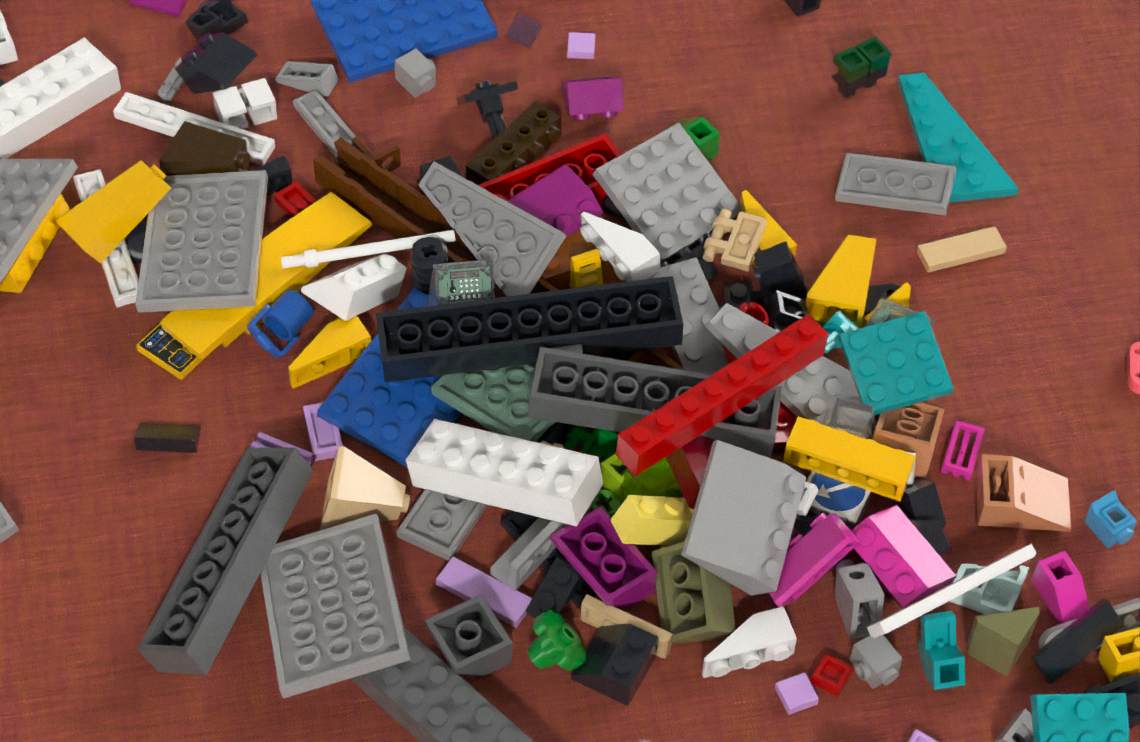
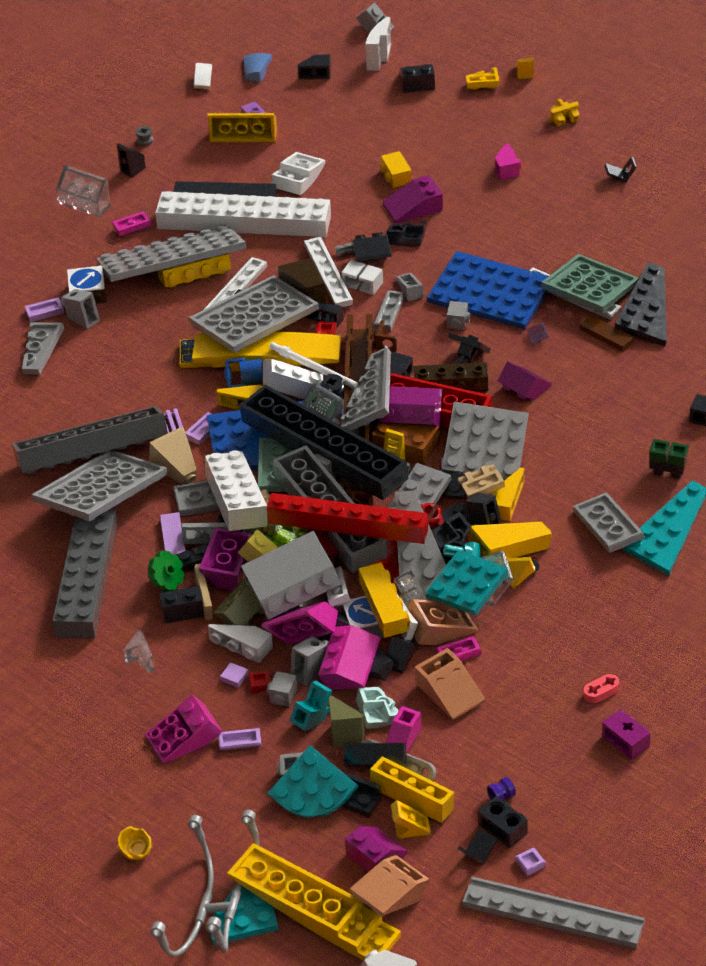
camera: 55 degrees right, 10 degrees down
(115, 210) = (236, 276): yellow slope -> none
(167, 437) = (141, 384): black slope -> none
(471, 638) = (133, 542): dark grey slope -> none
(581, 45) = (556, 359): lavender tile -> none
(625, 249) = (414, 444): white slope -> none
(702, 134) = (538, 434): green slope -> none
(951, 591) = (346, 684): white tile -> none
(961, 249) = (597, 575): tan tile -> none
(1110, 520) = (475, 728): dark azure window -> none

